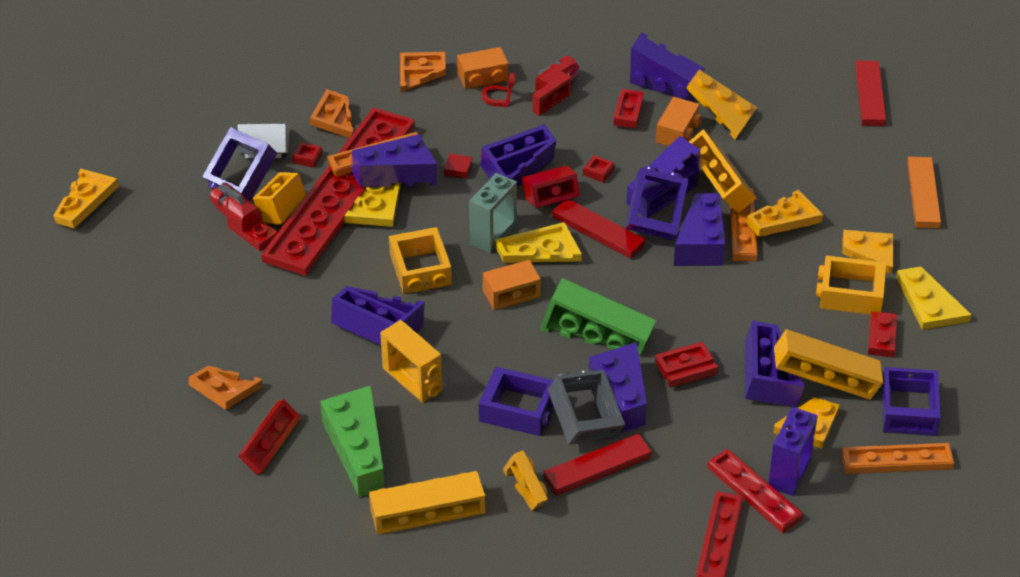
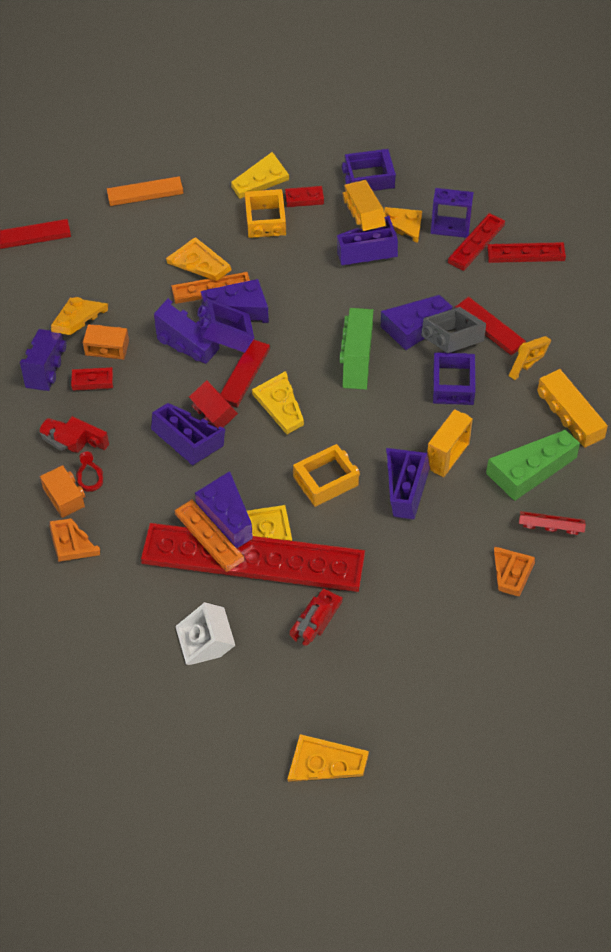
camera: 105 degrees left, 10 degrees up
(255, 173) = (251, 647): window -> none
(280, 197) = (287, 590): light orange brick -> none
(307, 155) = (211, 596): red tile -> none
(333, 114) = (152, 592): orange wing -> none
(458, 165) = (194, 481): red tile -> none
(486, 225) = (257, 436): sand green window -> none
(511, 284) = (333, 409): orange brick -> none
(598, 169) = (171, 387): red tile -> none
(686, 364) = (377, 292): red plate -> none
(722, 172) = (177, 292): light orange brick -> none
(869, 246) = (217, 212): light orange wing -> none
(897, 458) = (417, 175): orange tile -> none

